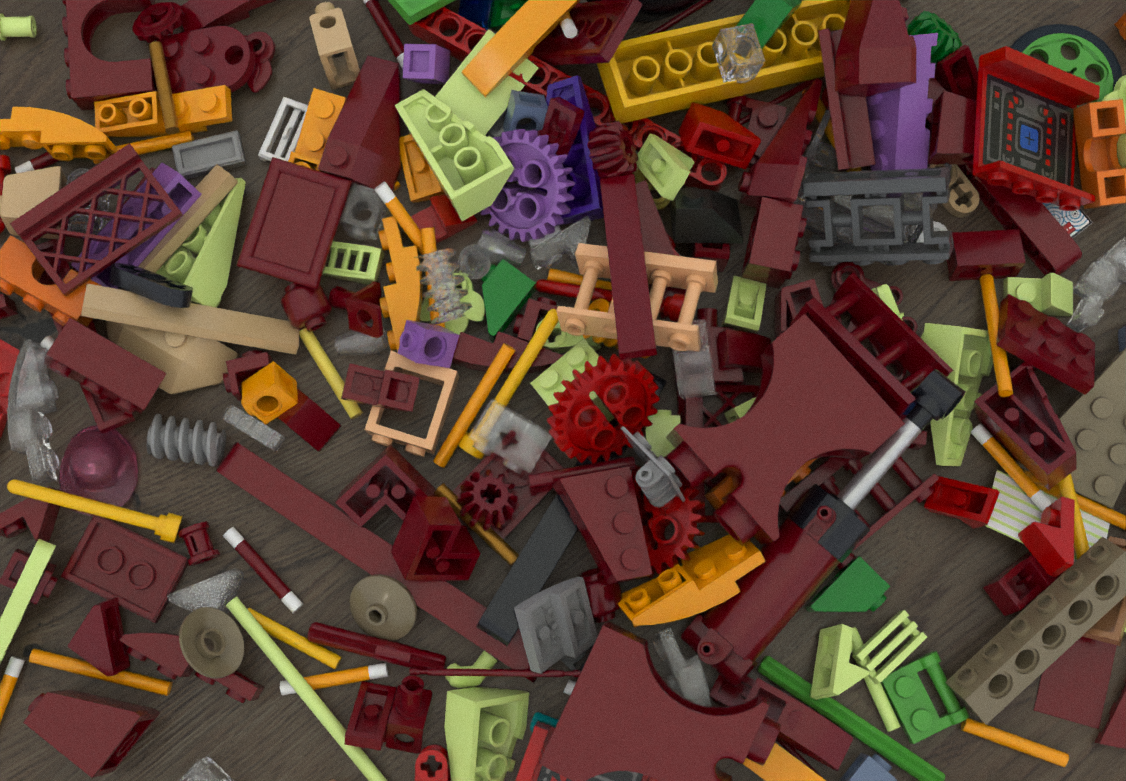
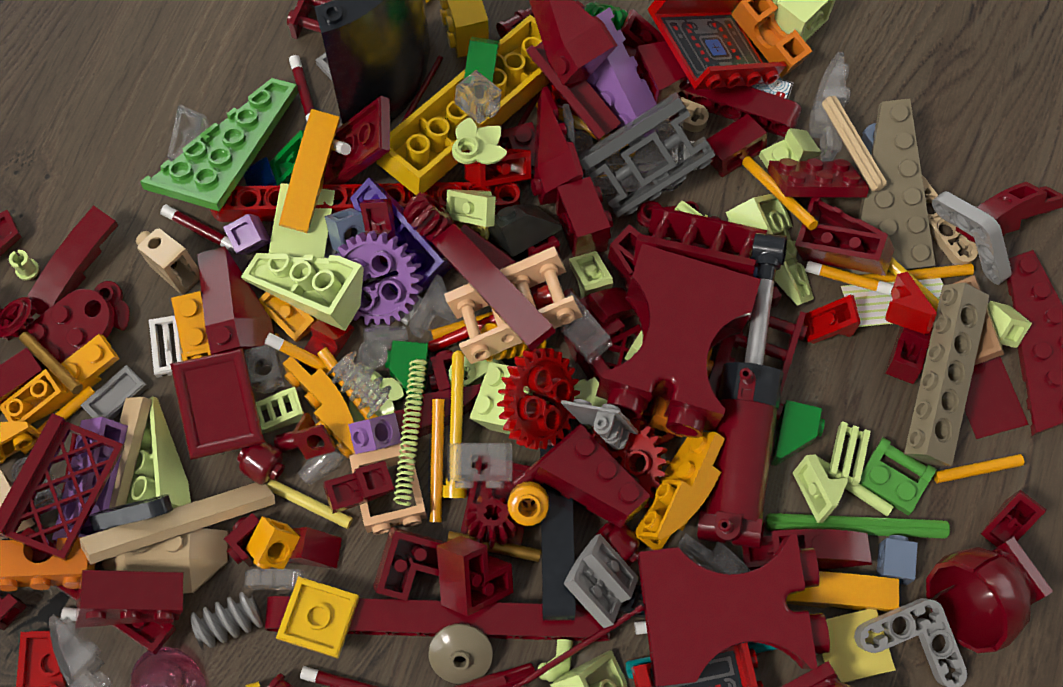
camera: 30 degrees left, 10 degrees down
(268, 491) = (318, 617): none -> yellow tile
(455, 365) = (412, 431): none -> yellowish green piece
(530, 507) = (528, 514): none -> light orange head
(712, 104) = (480, 141): none -> yellowish green plate
(1110, 330) = (854, 144): none -> tan axle

